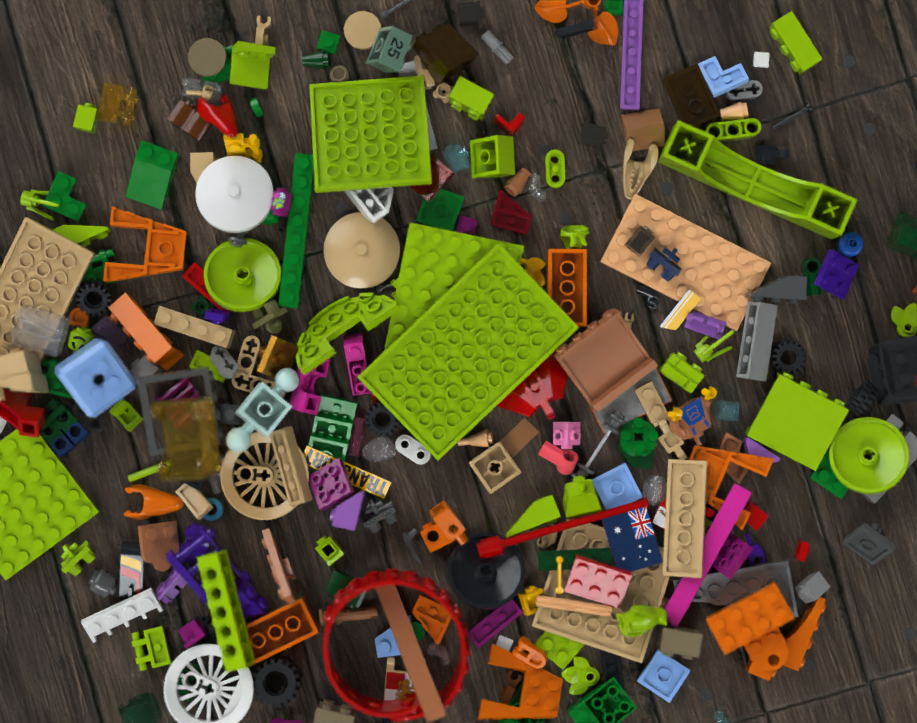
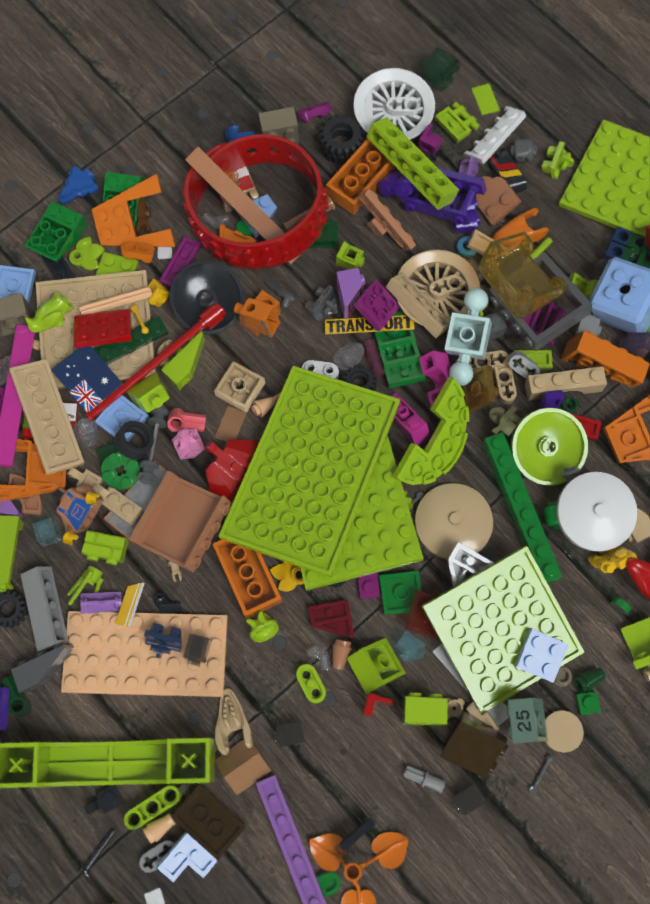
camera: 160 degrees right, 15 degrees down
(108, 662) = (485, 99): none -> lime sticker
(281, 202) = (550, 523): magenta brick -> none
(348, 97) = (541, 655): none -> light blue plate
(601, 457) = (127, 449): none -> black tyre

